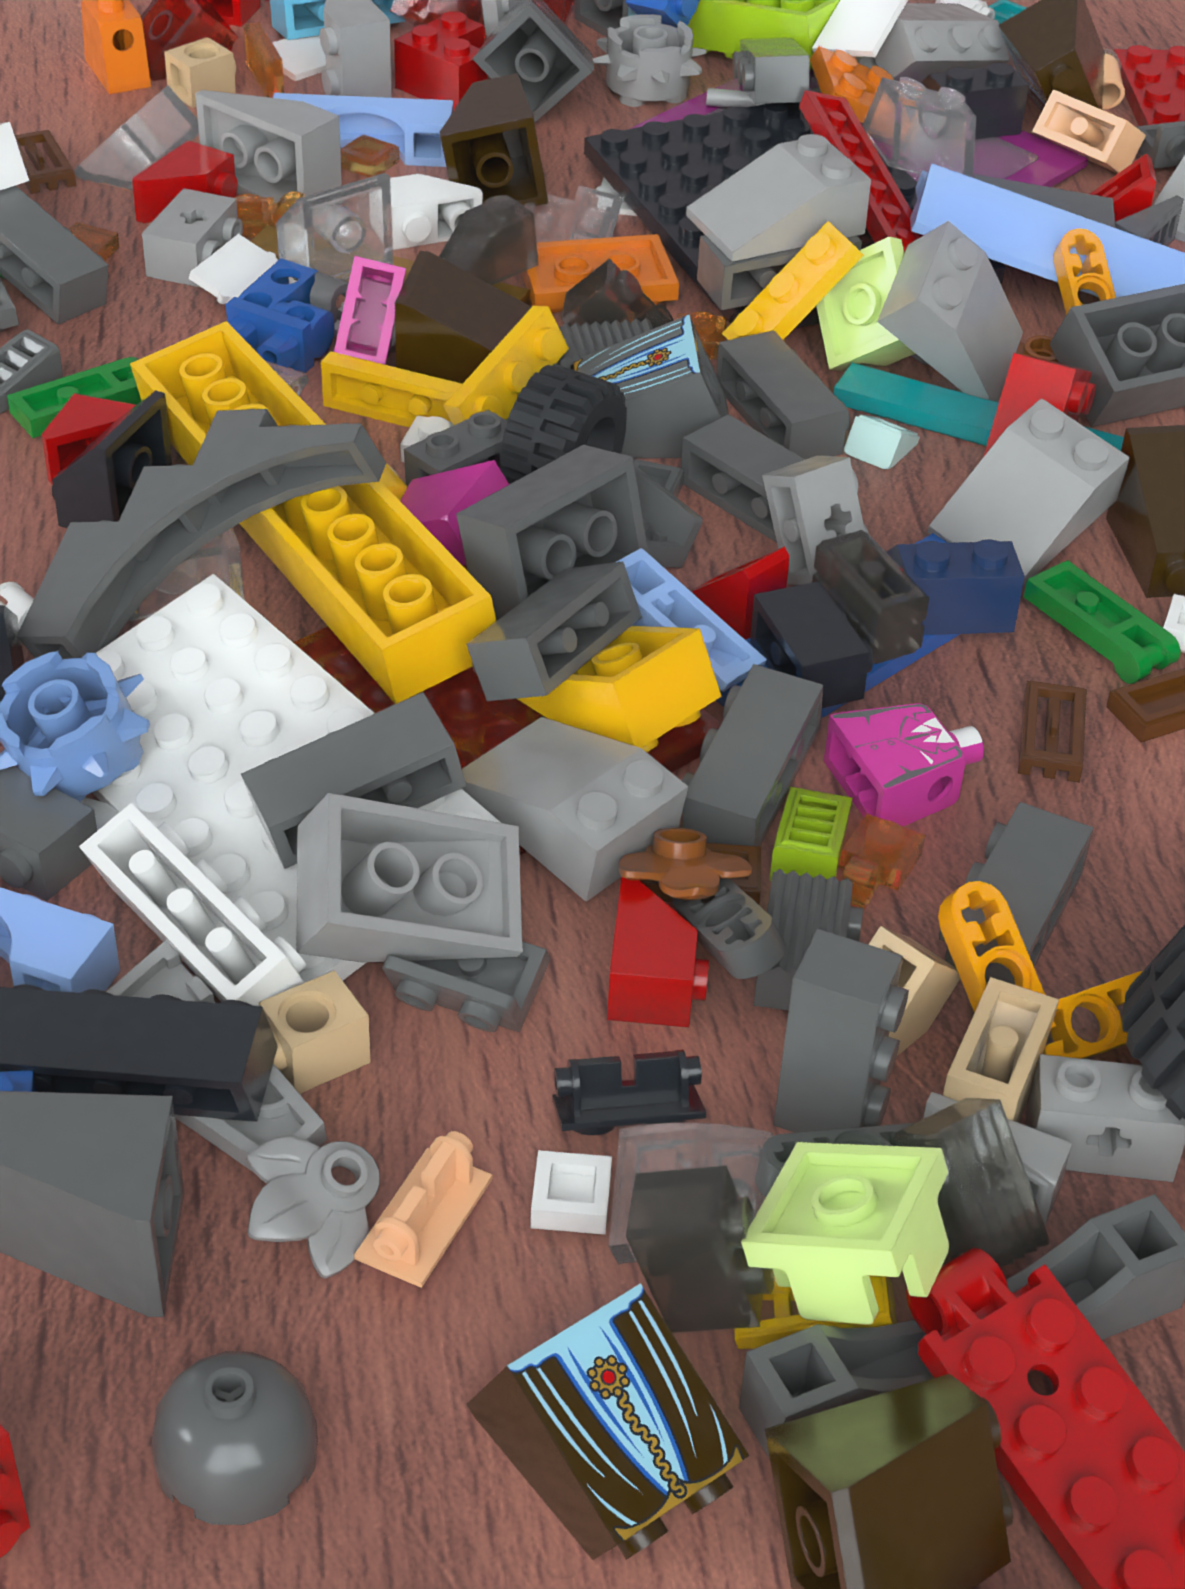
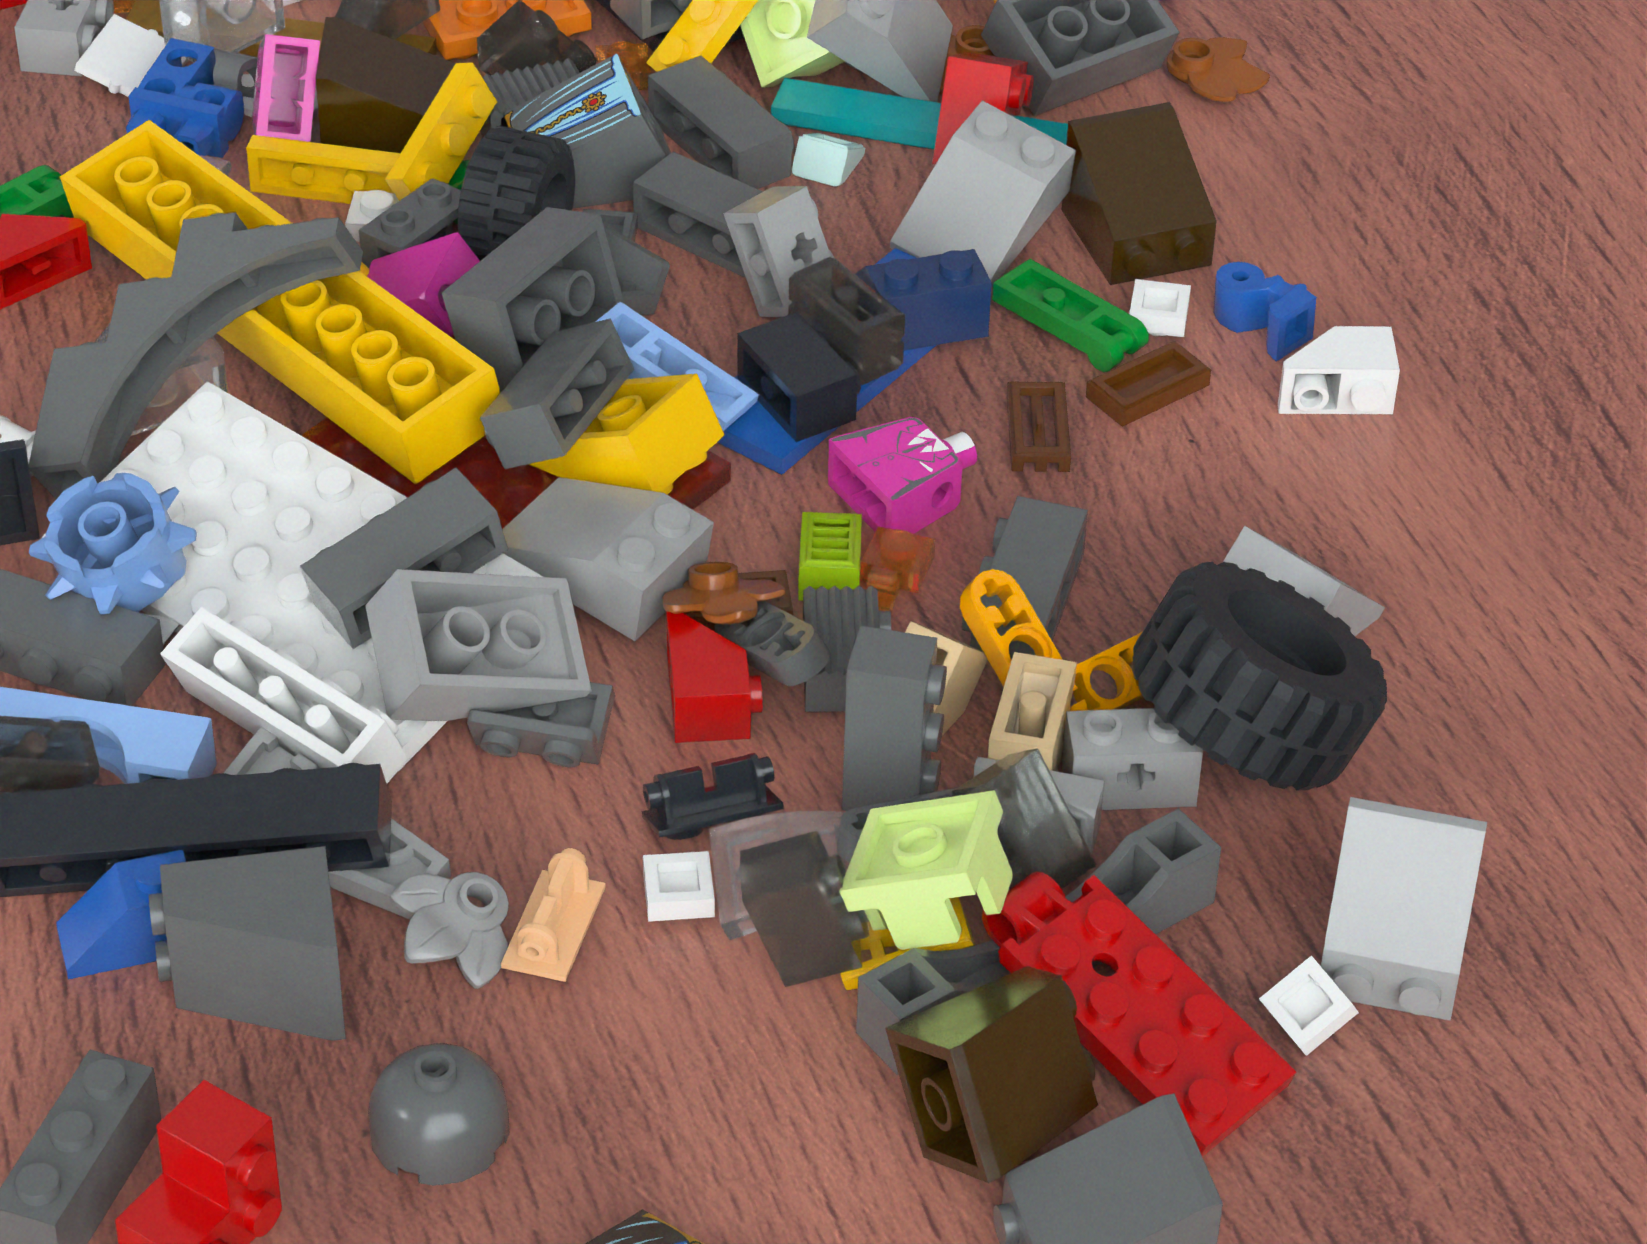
camera: 10 degrees left, 0 degrees up
(106, 472) = (69, 288): black slope -> none
(318, 1031) = (425, 784): tan brick -> none
(612, 1426) = (753, 1054): dark brown slope -> none
(733, 591) = (716, 328): red slope -> none
(752, 757) = (763, 486): dark grey brick -> none

